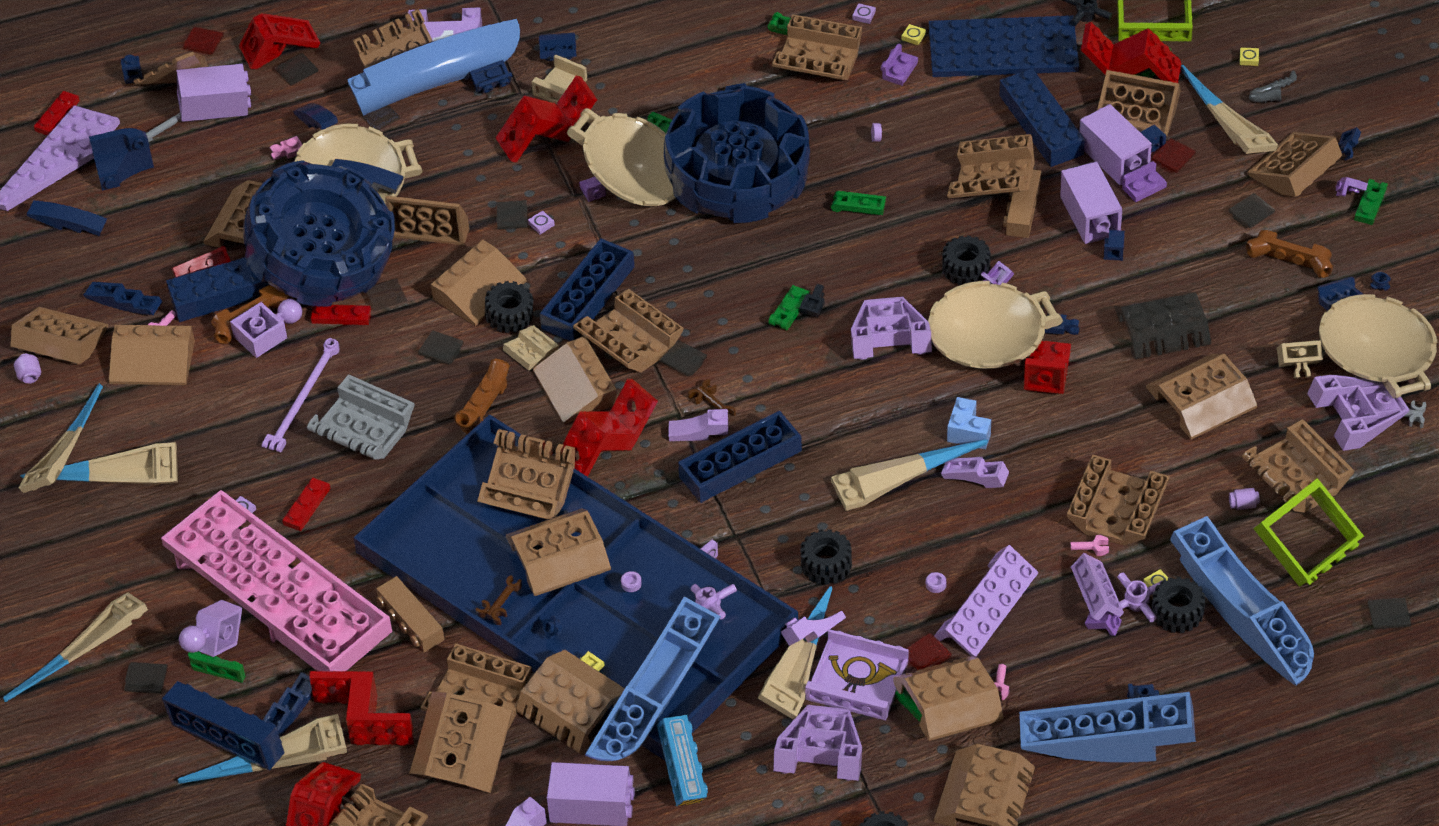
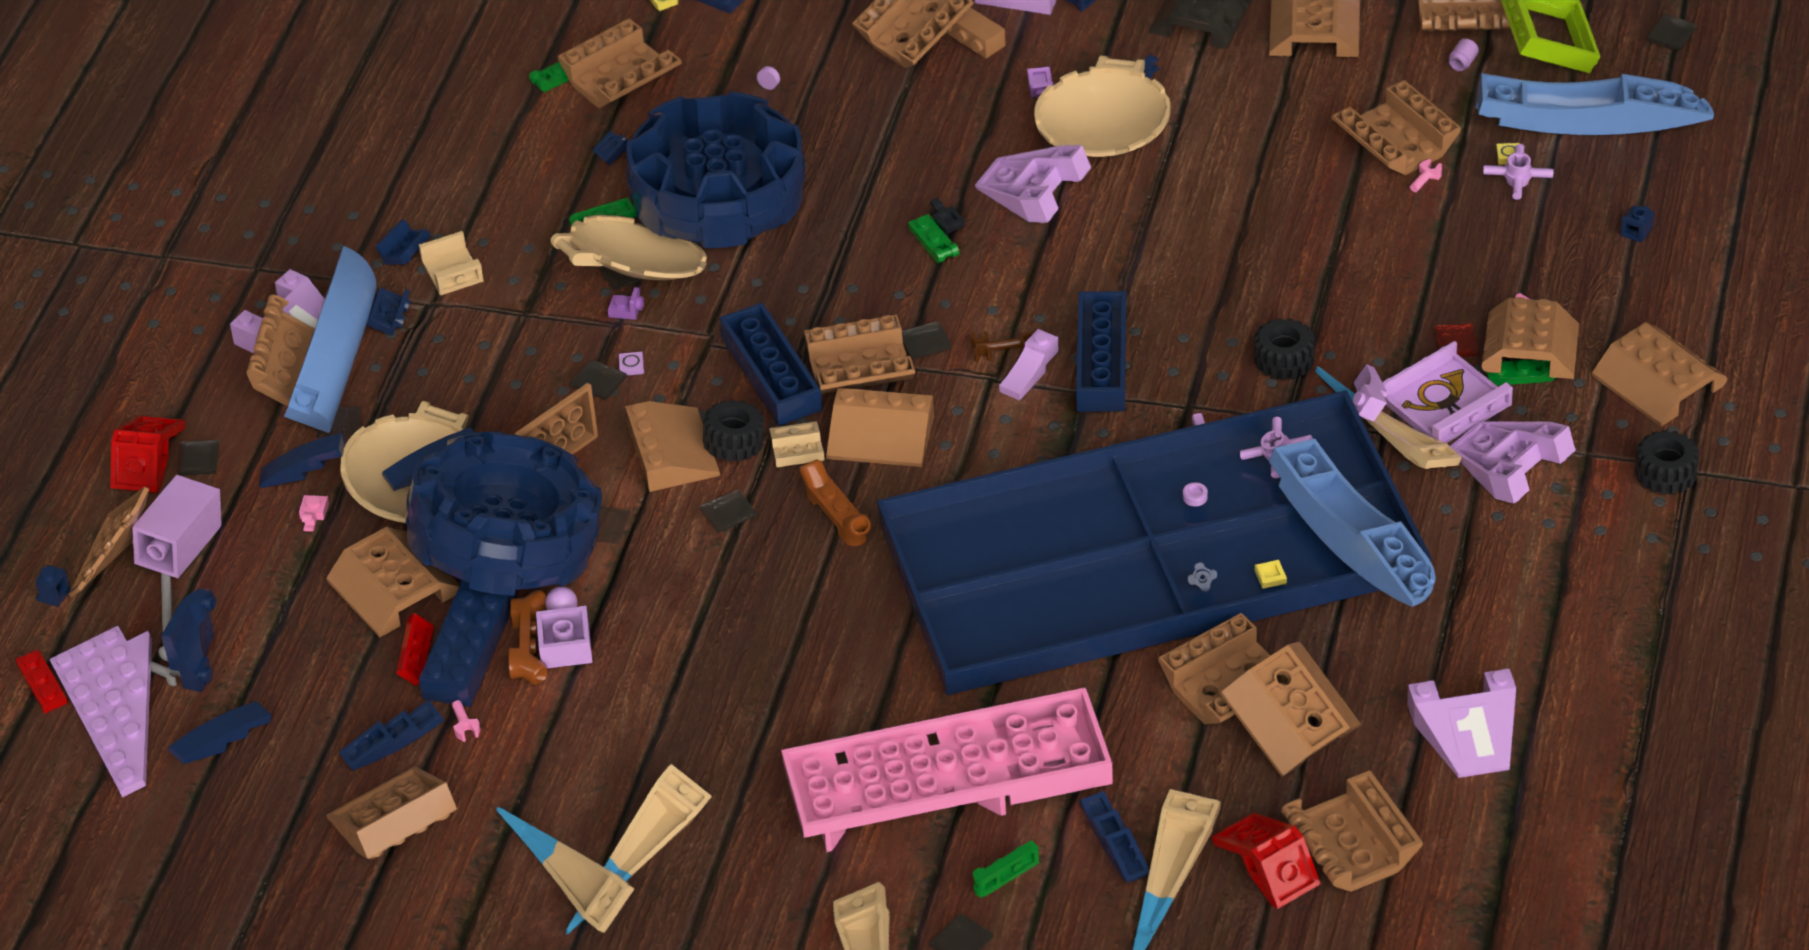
camera: 55 degrees left, 5 degrees down
(27, 368) = (417, 857): lavender head -> none
(151, 354) = (503, 744): medium nougat slope -> none
(203, 40) = (70, 512): clear red piece -> none
(215, 629) = (970, 835): lavender brick -> none
(223, 725) = (1108, 885): dark blue brick -> none
(306, 504) = (841, 706): red plate -> none
(331, 348) = (641, 600): lavender hinge -> none
(341, 314) = (601, 569): red plate -> none
(360, 693) = (1176, 766): red bracket -> none
(364, 418) = (775, 604): light grey slope -> none
(409, 614) = (1102, 680): medium nougat brick -> none
(496, 610) = (1131, 614): reddish brown bar -> none
(528, 476) = (990, 504): medium nougat slope -> none
(544, 118) = (506, 288): red bracket -> none
(563, 556) = (1130, 518): medium nougat slope -> none
(568, 698) = (1307, 604): medium nougat slope -> none
(590, 794) = (1440, 639): lavender brick -> none
(610, 430) = (980, 418): red bracket -> none
(682, 760) = (1461, 552): dark azure brick -> none
(858, 202) = (847, 131): green plate -> none
(864, 13) = (597, 18): lavender tile -> none
(873, 480) = (1214, 278): tan plate -> none
(898, 66) = (695, 26): medium lavender bracket -> none
(936, 582) = (1376, 295): lavender tile -> none
(965, 260) = (1002, 91): black tyre -> none
(965, 425) = (1210, 186): light blue brick -> none
(976, 470) = (1270, 203): lavender slope -> none
(989, 601) = (1449, 277): lavender bracket -> none
(1047, 367) = (1197, 106): red bracket -> none
(1096, 587) = (1487, 189): lavender fence -> none
(1108, 620) = (1523, 205): medium lavender bracket -> none
(1110, 729) = (1672, 245): medium blue slope -> none
(1183, 592) = (1554, 146): black tyre -> none

